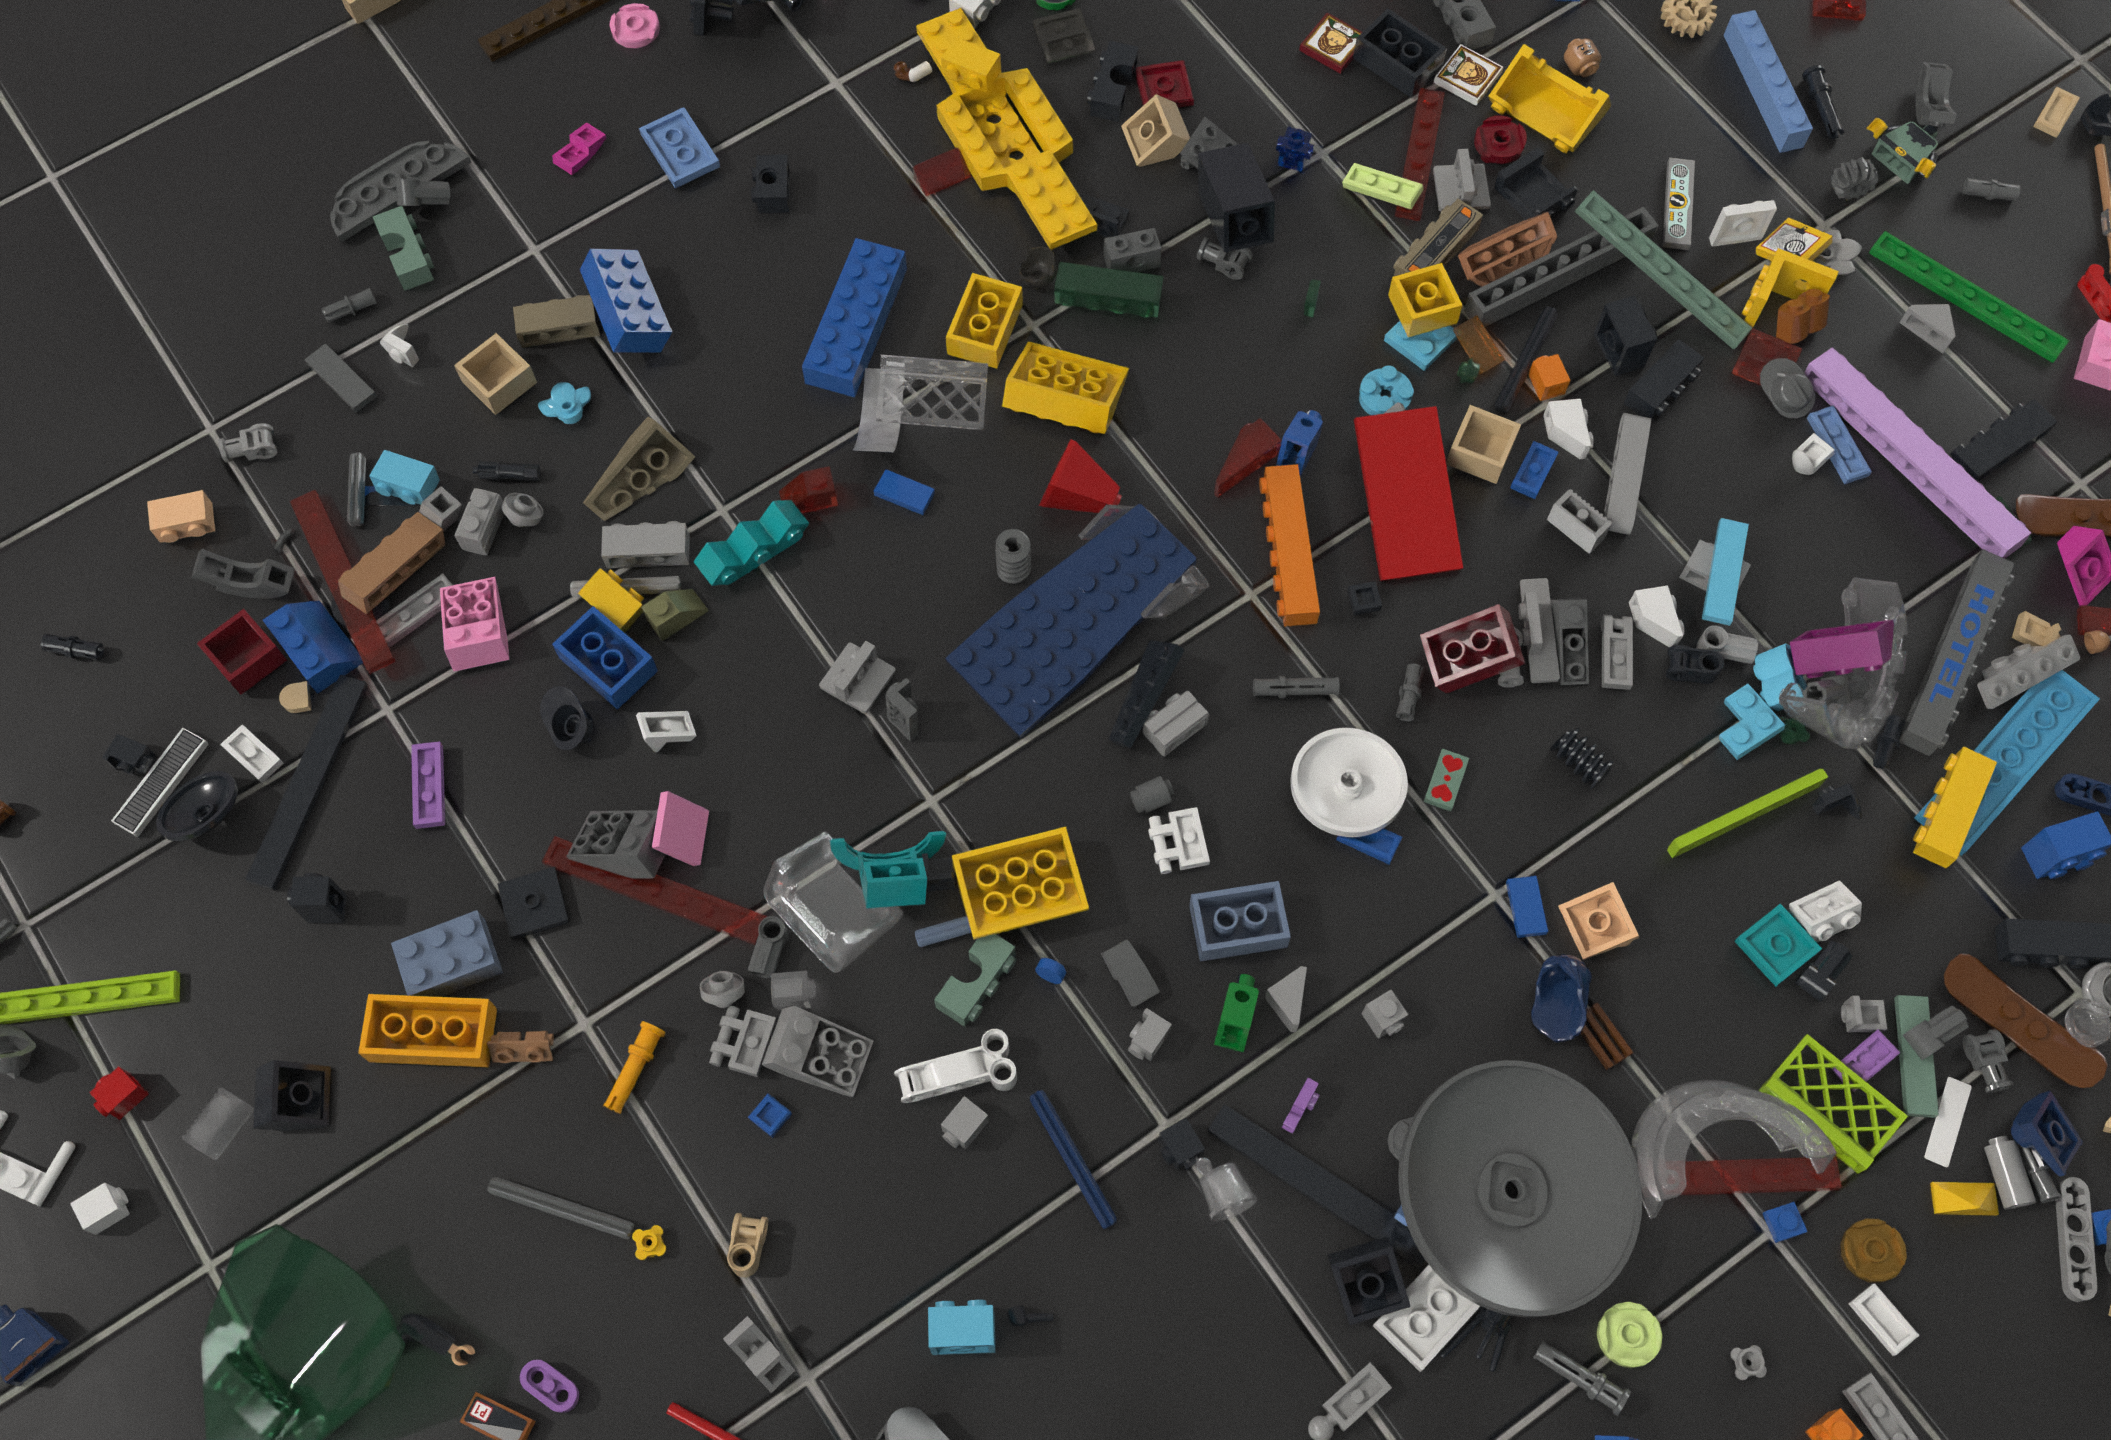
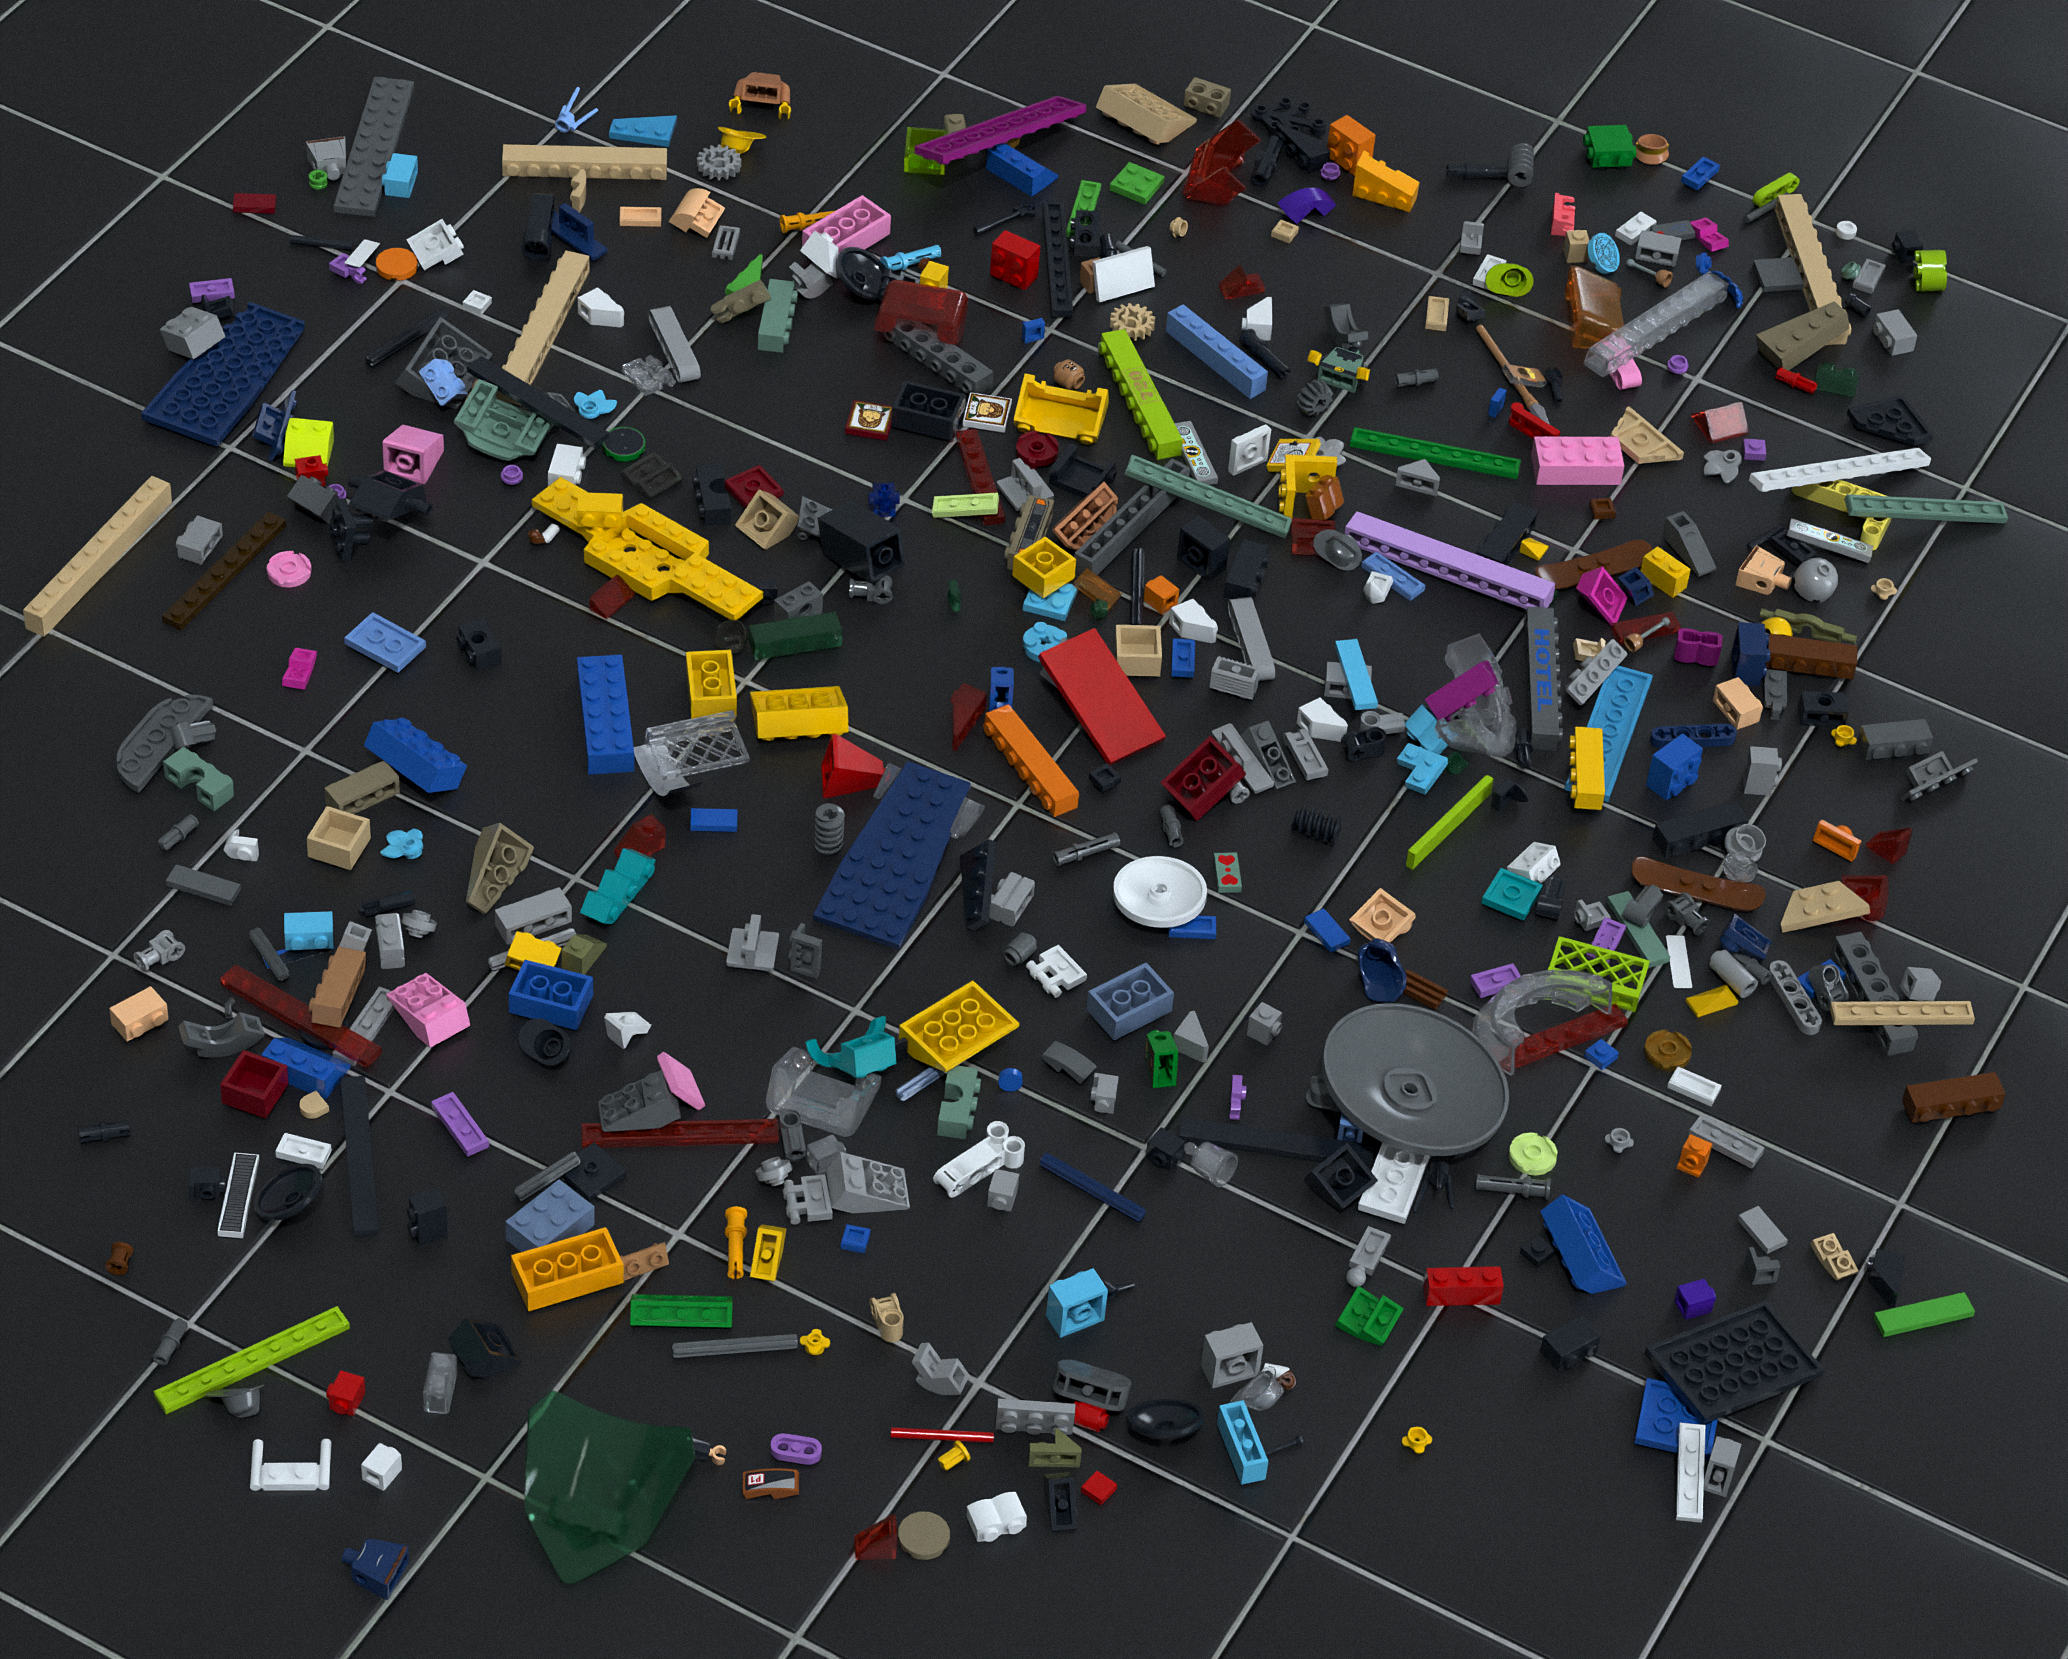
camera: 30 degrees left, 20 degrees down
(478, 892) = (547, 1176): none -> dark grey axle
(524, 1137) = (681, 1310): none -> green fence
(660, 1095) = (768, 1252): none -> yellow slope
(1652, 109) = (1140, 394): none -> lime brick
(1700, 1062) = (1493, 980): none -> medium lavender plate
(1838, 55) = (1259, 319): none -> white slope
(2029, 465) = (1533, 548): none -> yellow slope
(2074, 254) = (1497, 402): none -> blue tile

